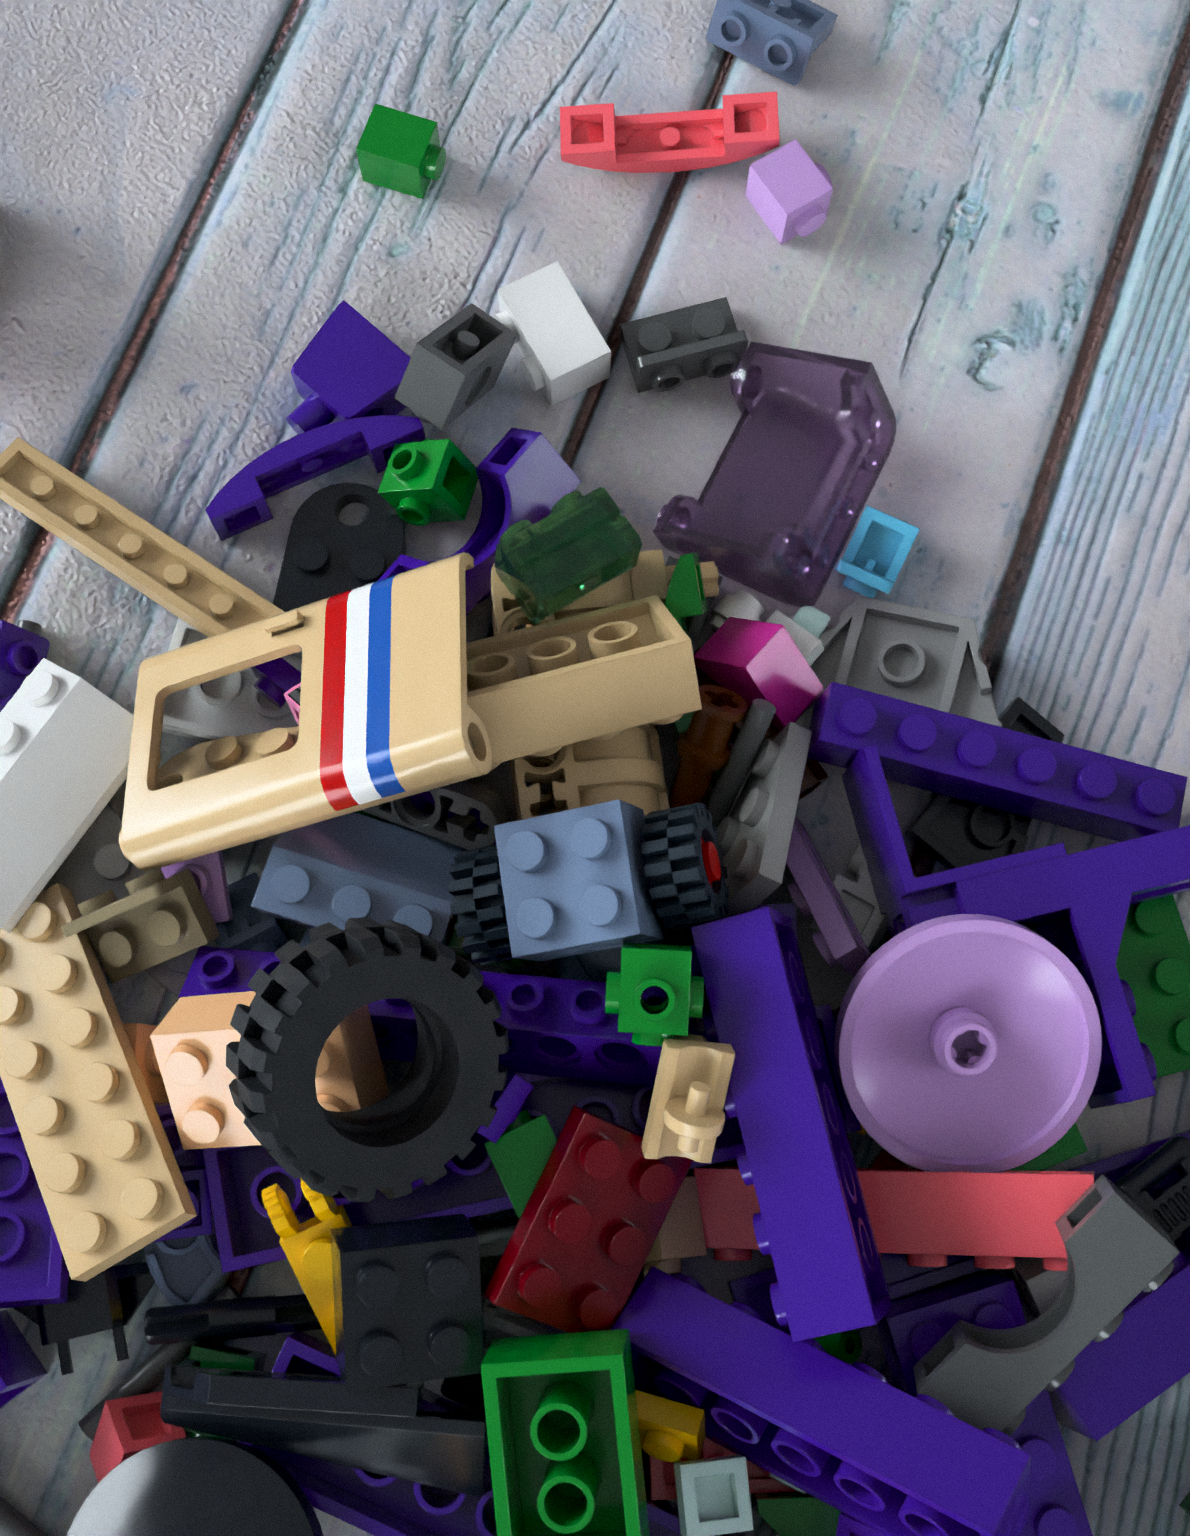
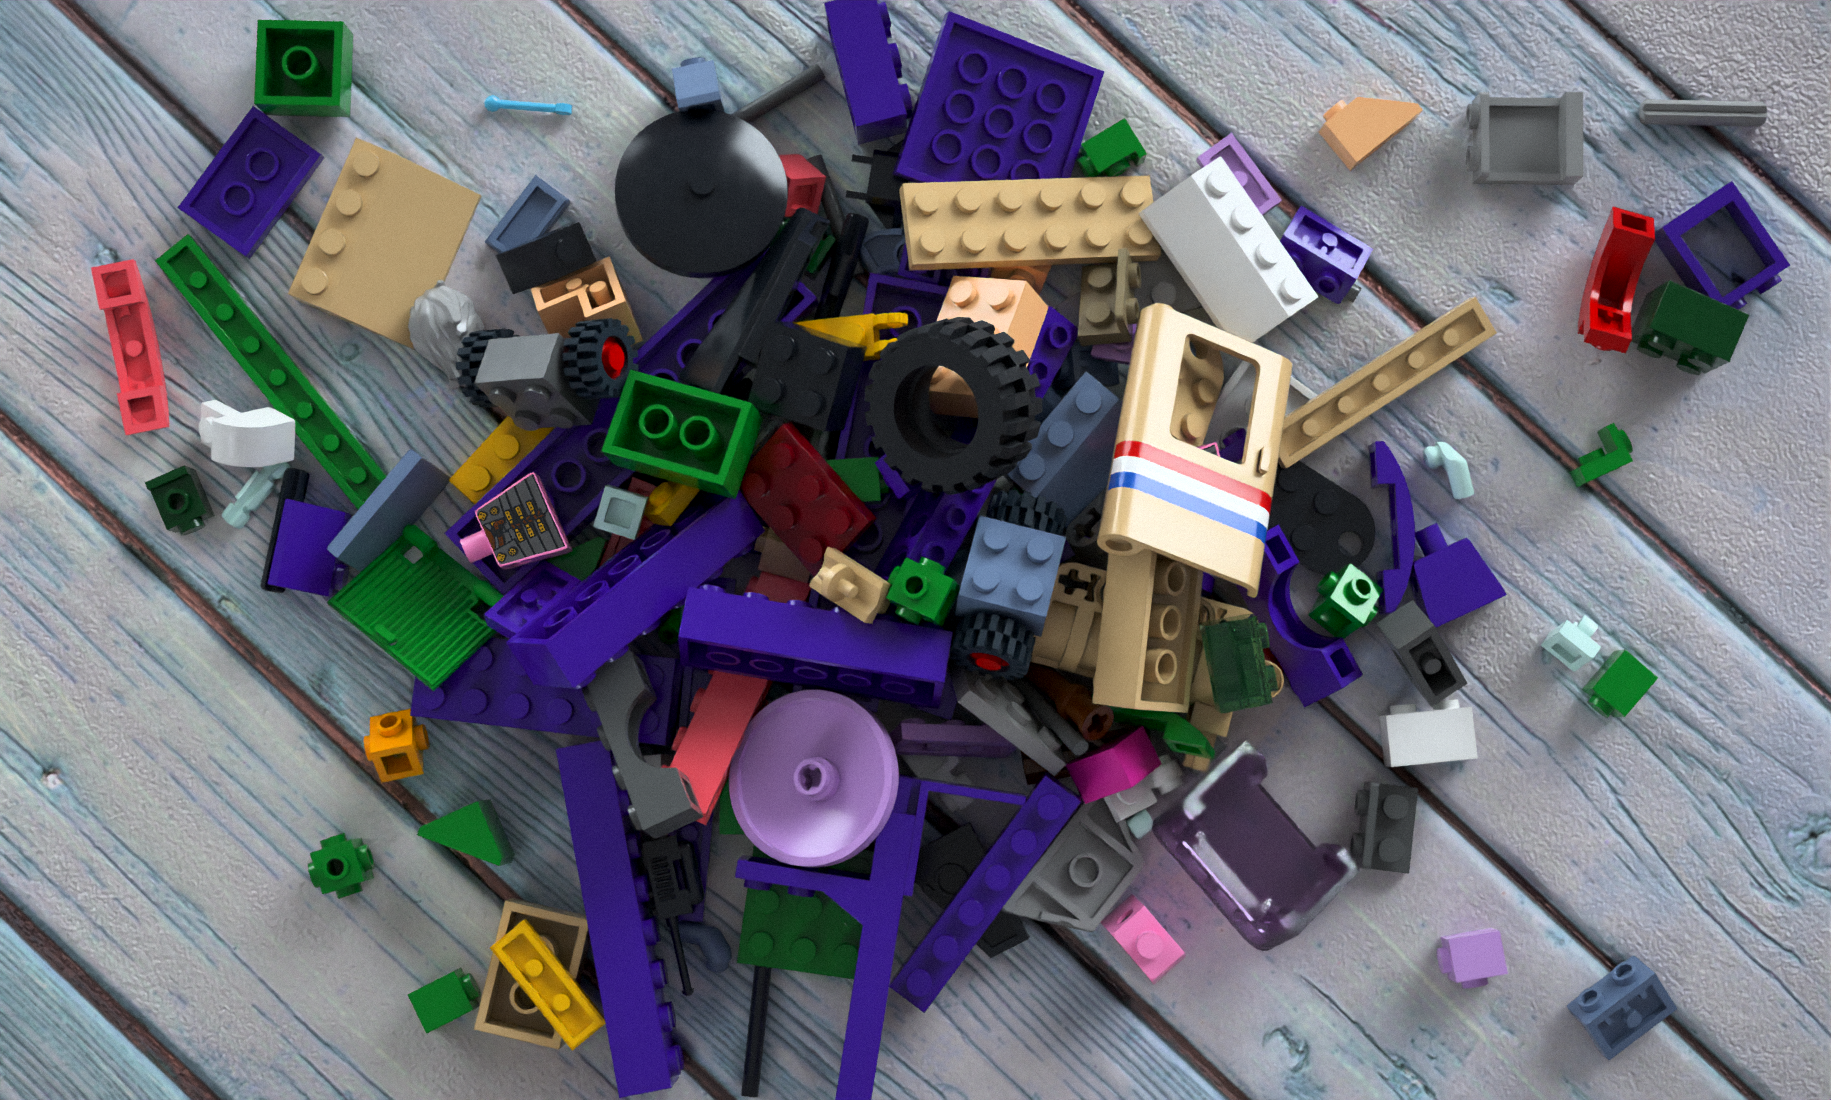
camera: 115 degrees right, 10 degrees up
(128, 255) = (1597, 463): none -> green bracket
(204, 430) = (1454, 465): none -> light aqua arm
(372, 216) = (1573, 643): none -> light aqua tile
(670, 140) = (1555, 888): coral slope -> none
(876, 552) = (1170, 890): medium azure bracket -> none
(956, 553) = (1143, 938): none -> bright pink torso

